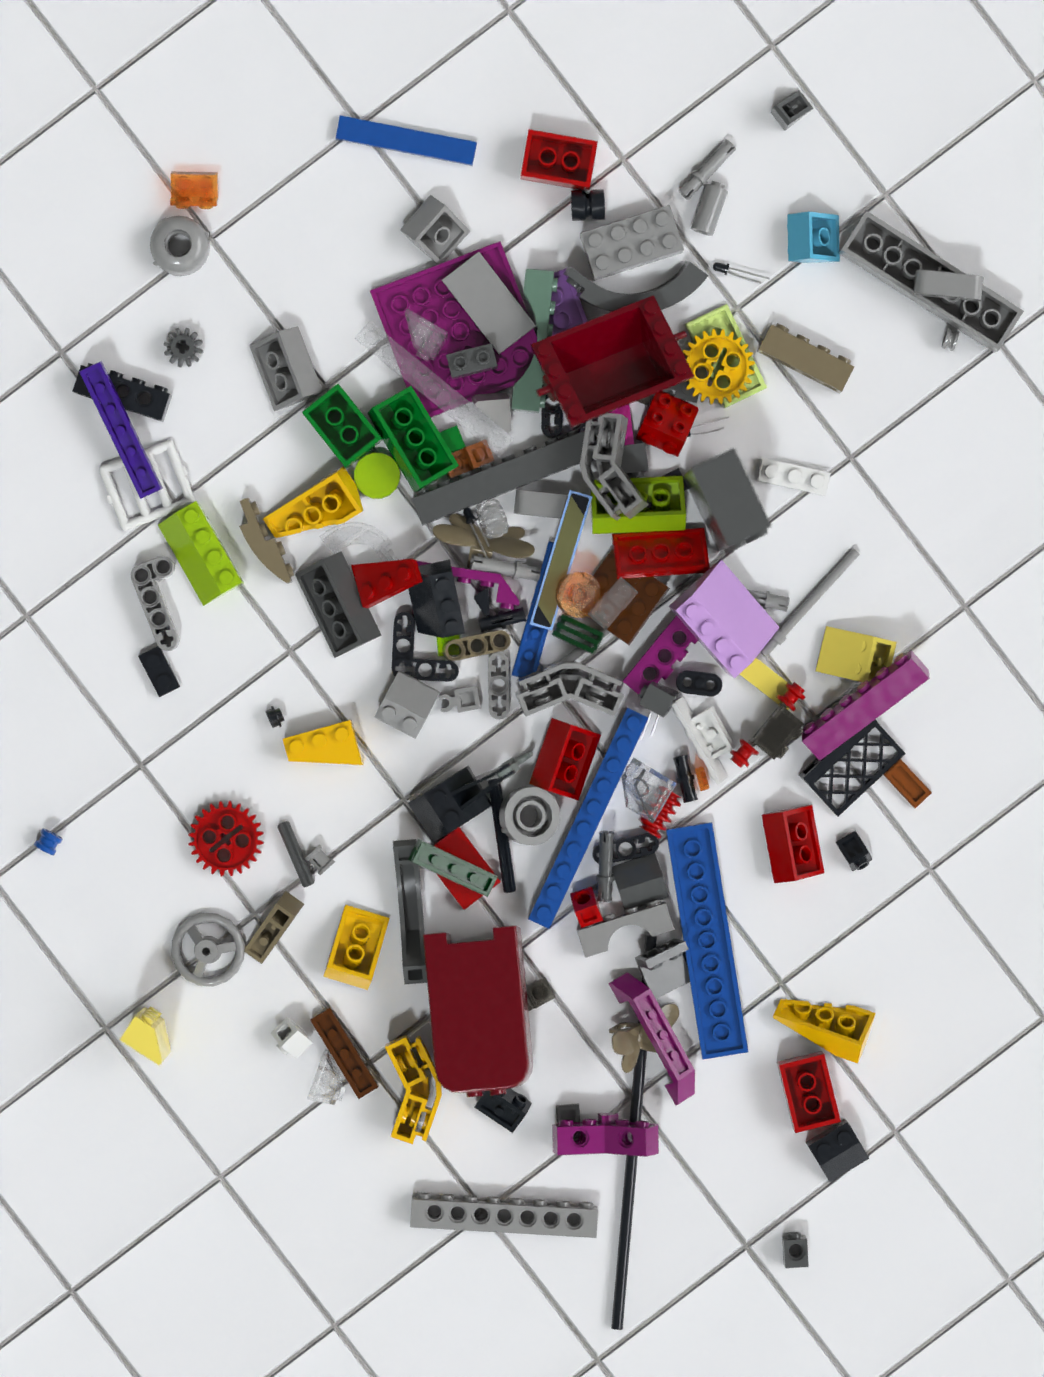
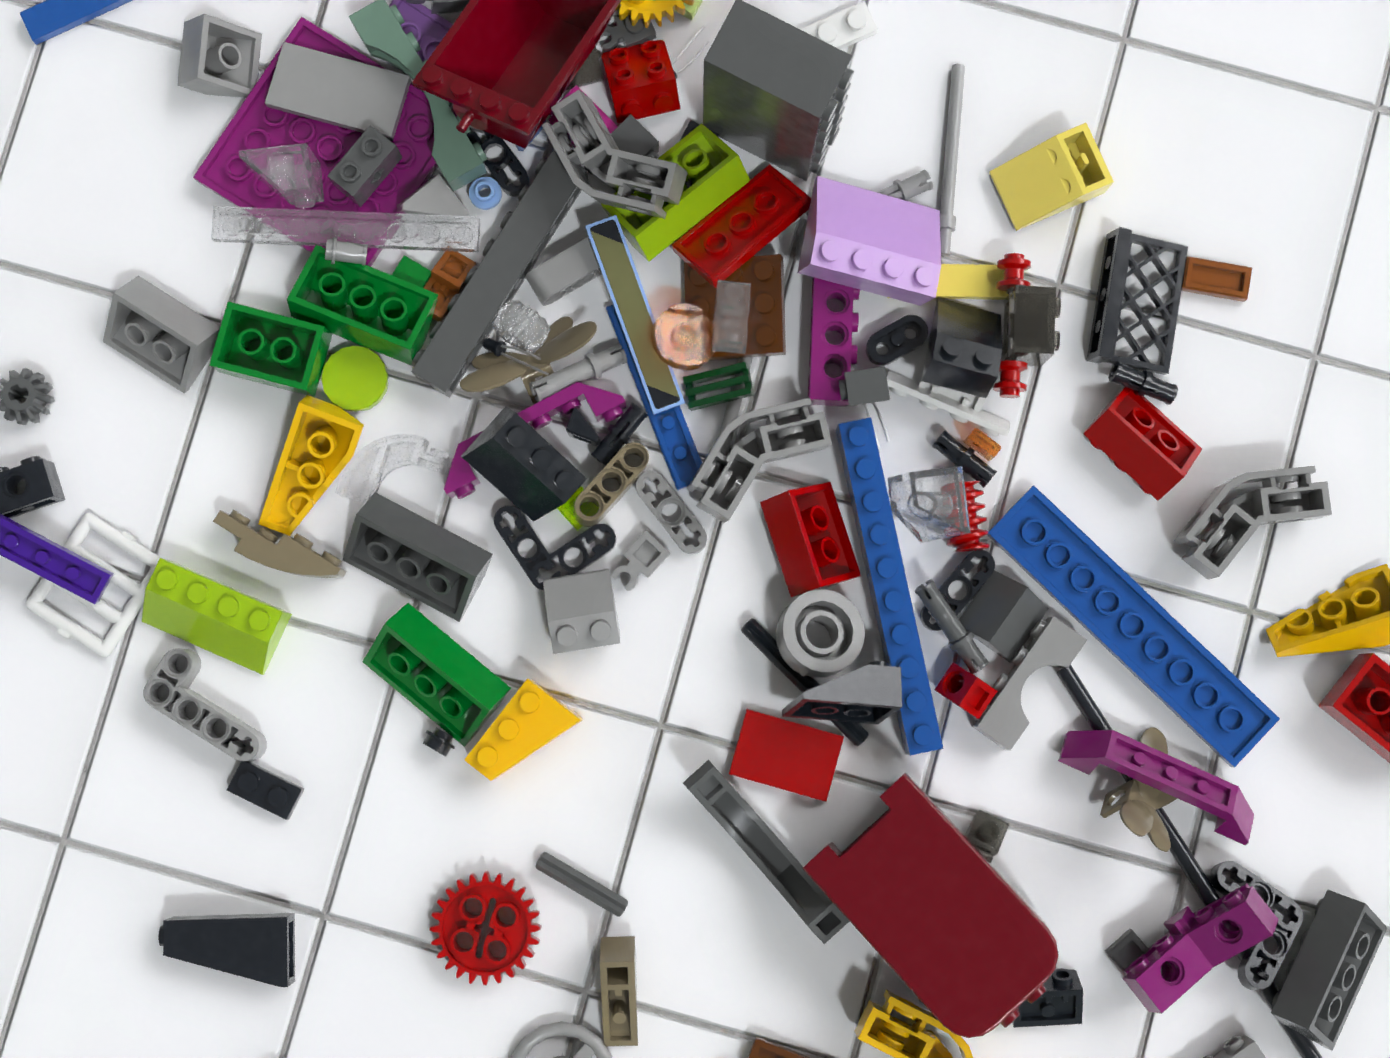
camera: 40 degrees left, 5 degrees down
(86, 747) = (242, 944): none -> black slope
(300, 678) = (435, 674): none -> green slope
(319, 860) = (614, 870): light grey bush -> none
(356, 947) = (734, 941): yellow slope -> none
(385, 579) = (447, 484): red wing -> none
(424, 404) = (345, 252): none -> light grey pin
(452, 867) = (776, 761): tile -> none
(459, 798) = (723, 675): black slope -> none
(526, 867) = (857, 697): none -> slope
(529, 430) = (490, 201): none -> light blue plate
(657, 1160) = (1284, 932): none -> beam
(664, 967) = (1108, 692): bracket -> none
(669, 1204) = (1329, 968): none -> dark grey slope
(731, 716) = (963, 348): none -> black slope
(817, 926) = (1244, 514): none -> light grey brick
(818, 811) = (1143, 383): none -> black pin
(854, 851) = (1218, 397): black bracket -> none
(865, 704) = (1107, 215): magenta brick -> none

